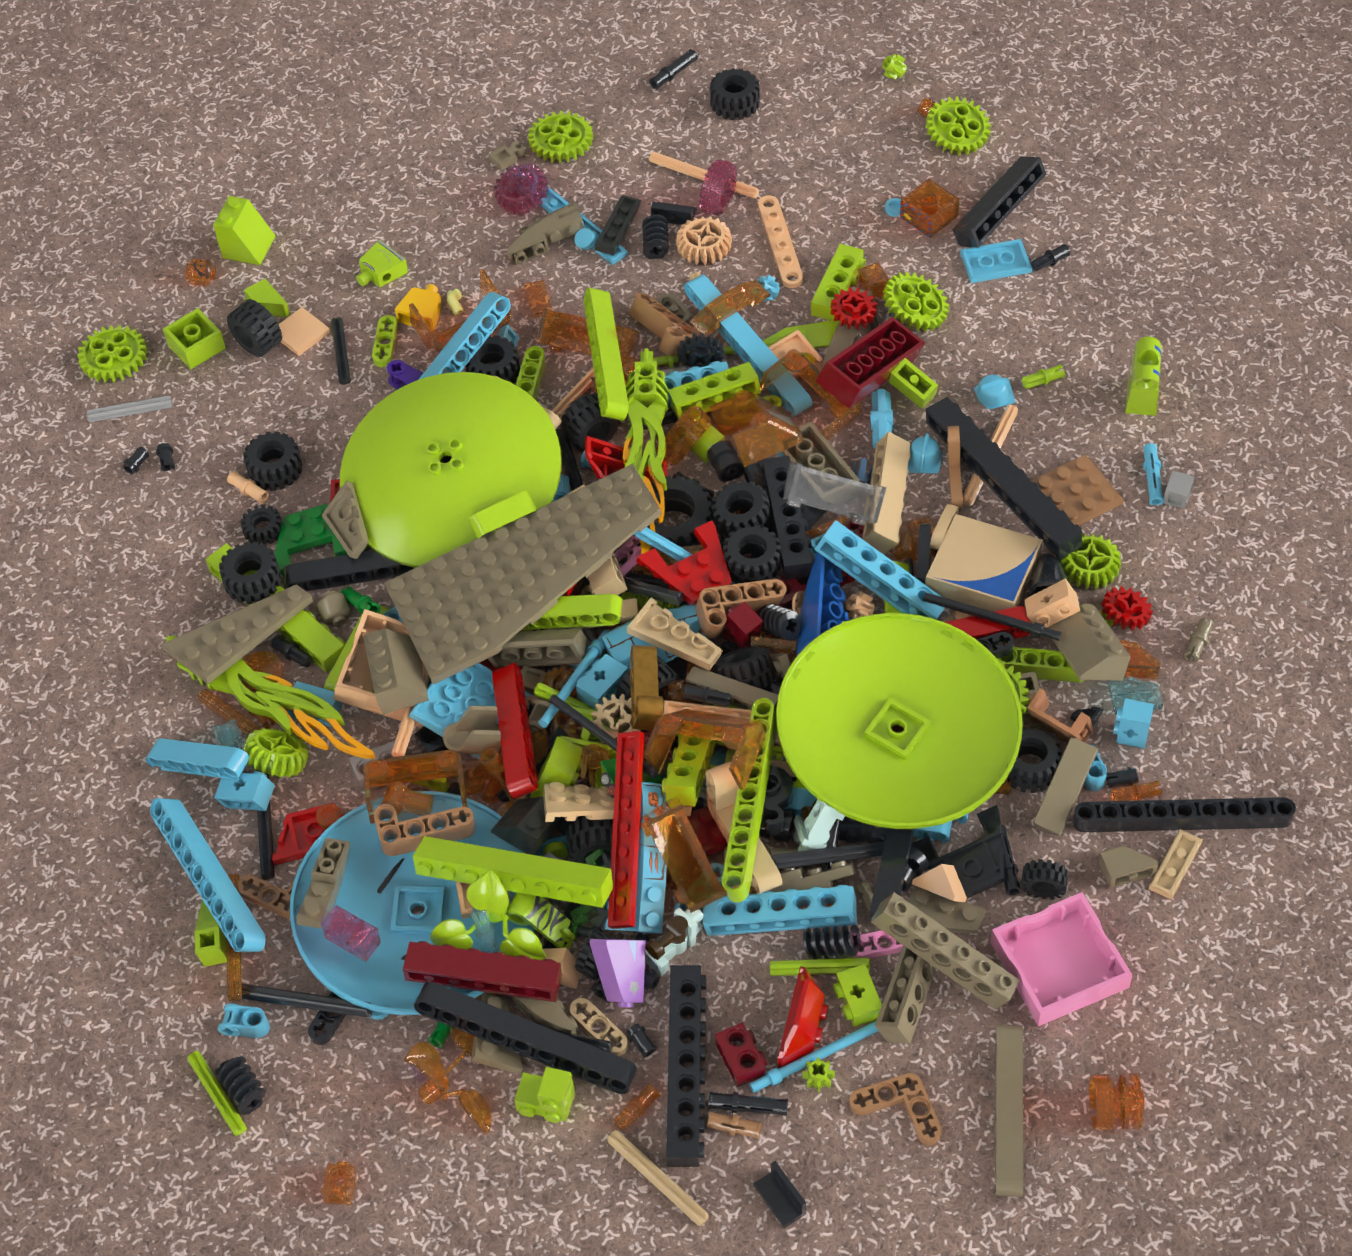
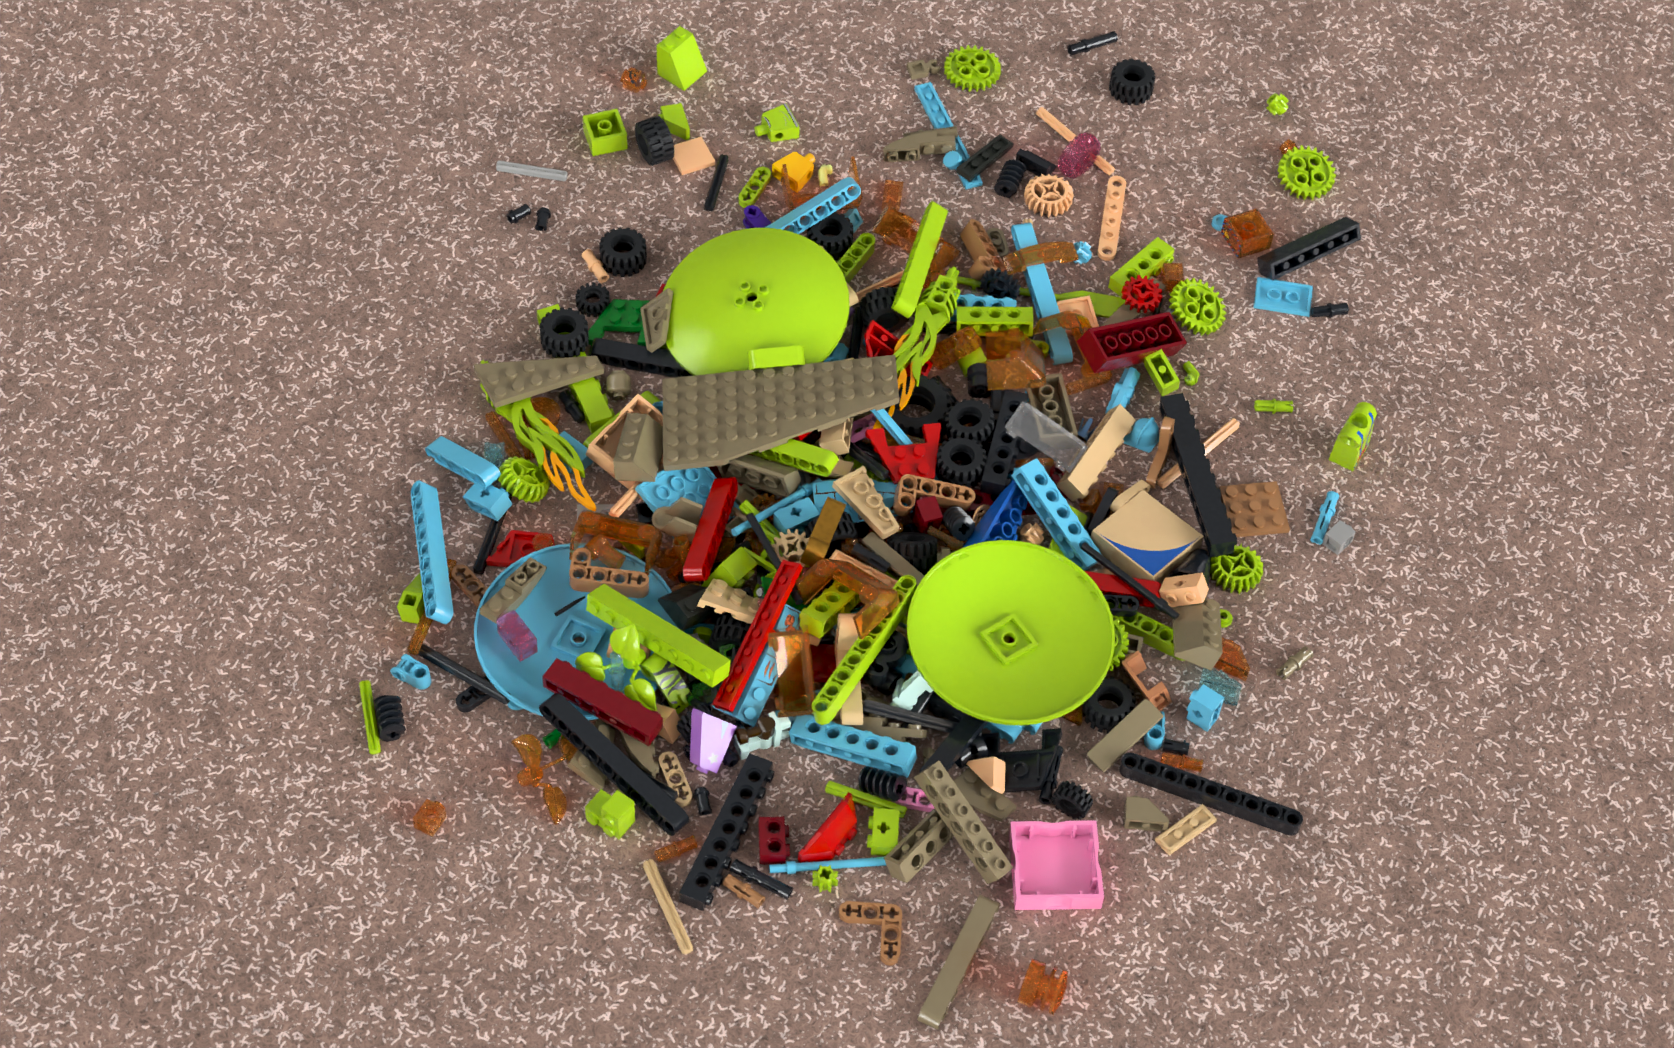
camera: 15 degrees right, 0 degrees up
(112, 353) = (537, 122): lime gear -> none
(360, 601) = (639, 386): green pin -> none
(515, 199) = (930, 100): clear pink gear -> none
(591, 758) = (759, 570): clear orange plant -> none
(781, 1196) = (753, 956): black panel -> none
(943, 374) = (1192, 374): none -> lime arm
(994, 392) = (1228, 404): medium azure piece -> none
(1093, 712) = (1175, 689): black tile -> none
(1126, 608) = (1256, 620): red gear -> none

